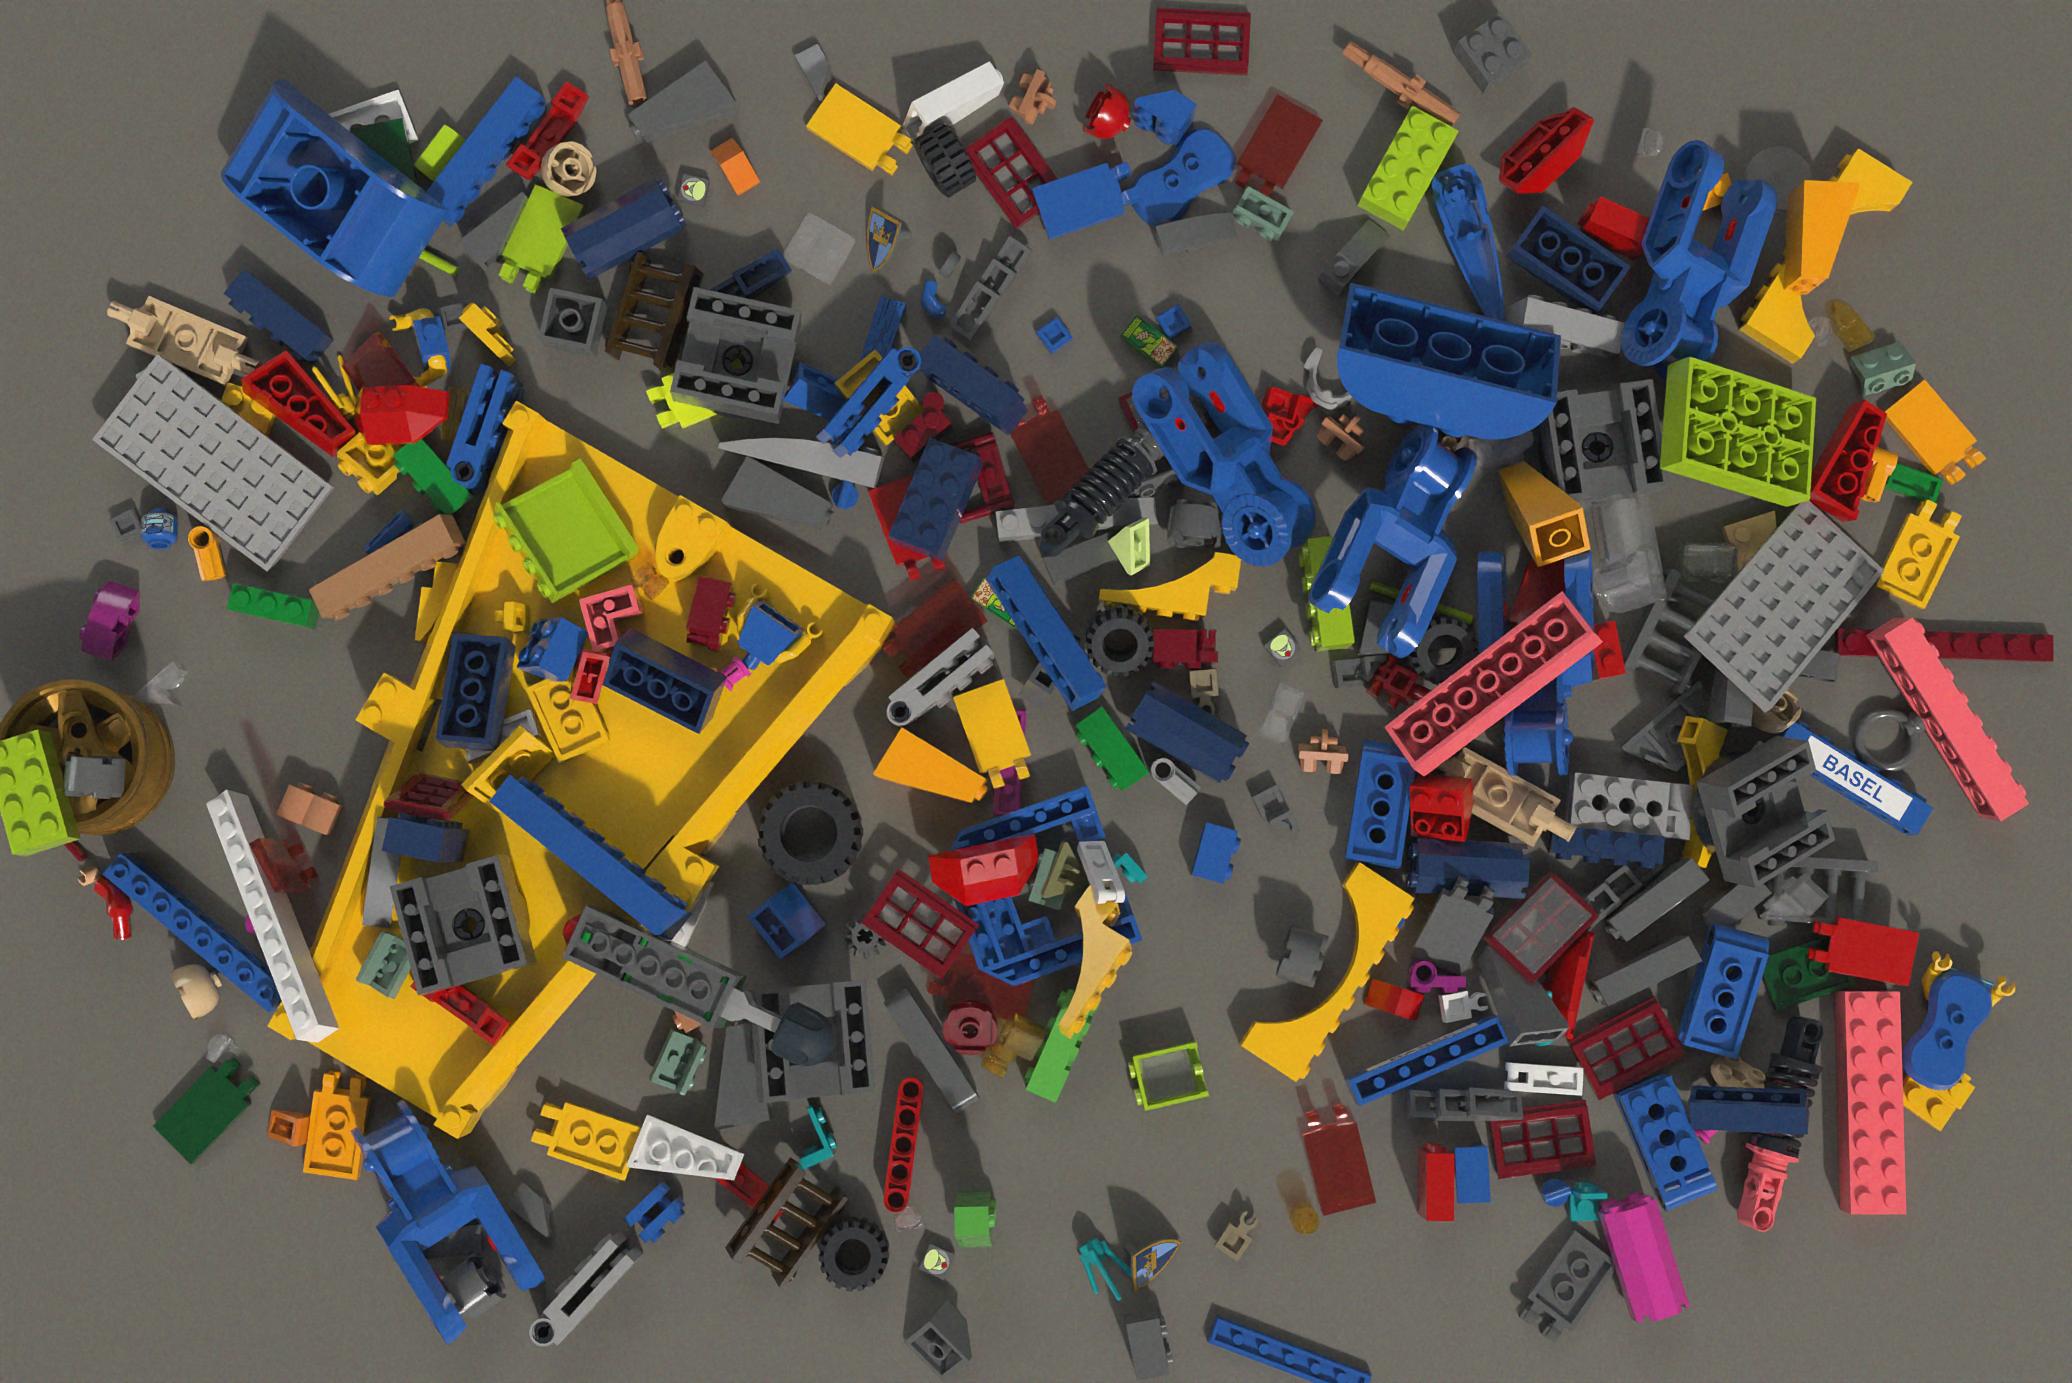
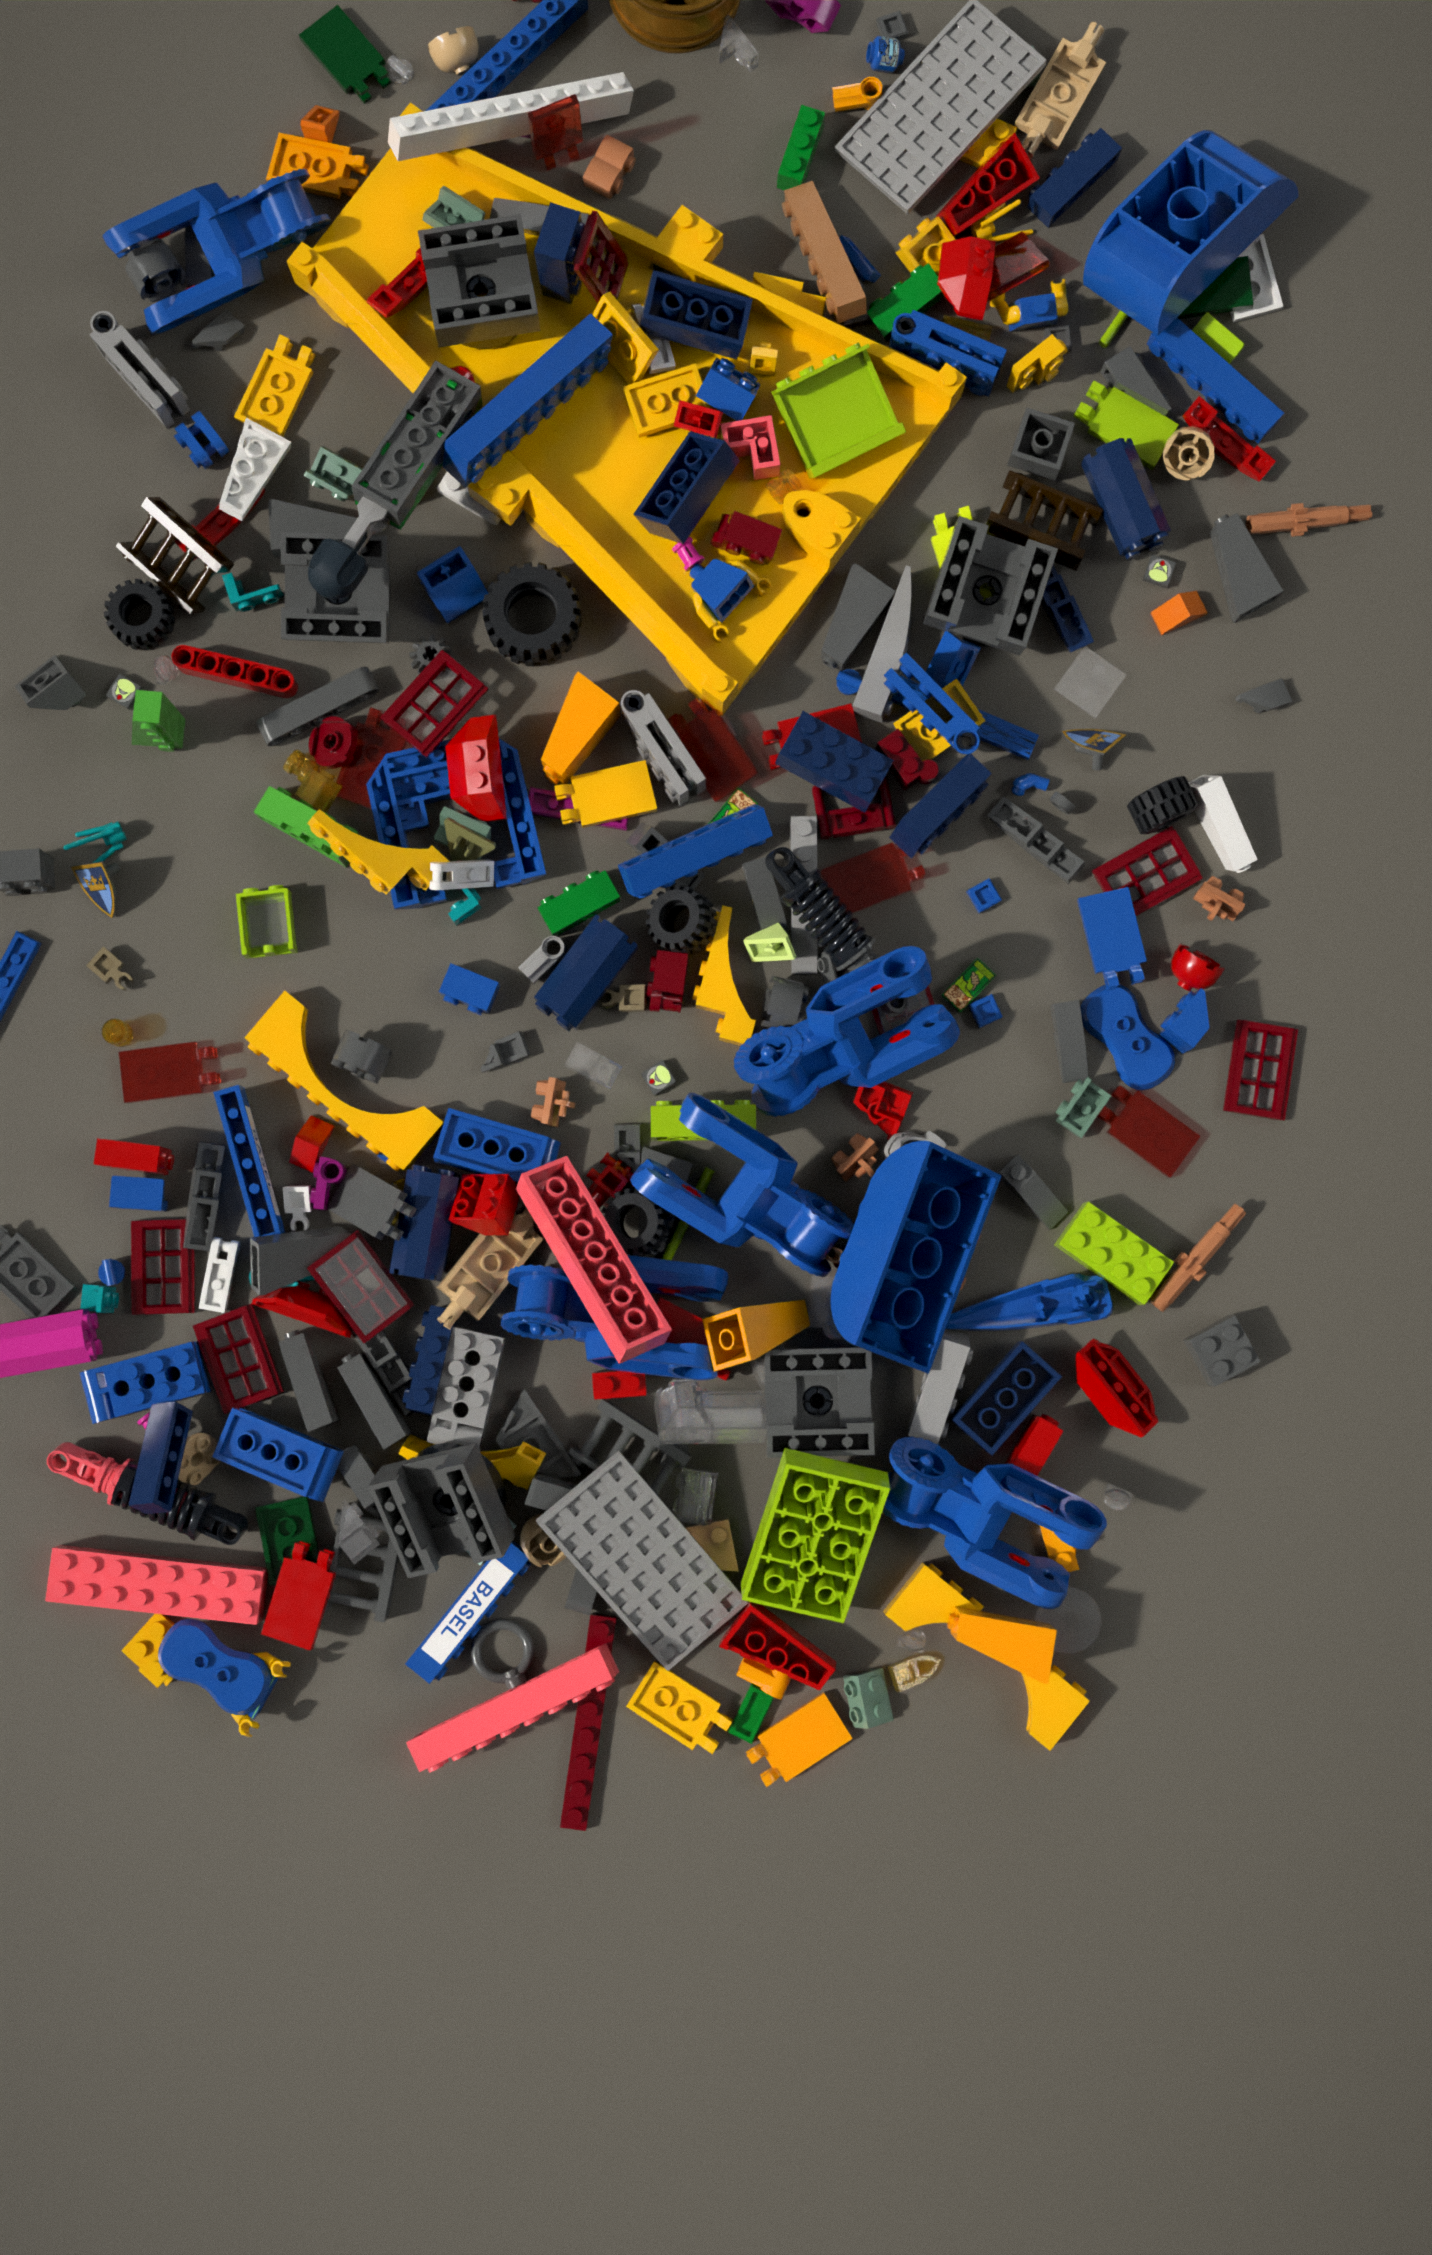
camera: 90 degrees right, 0 degrees up
(858, 130) = (1204, 730): yellow tile -> none

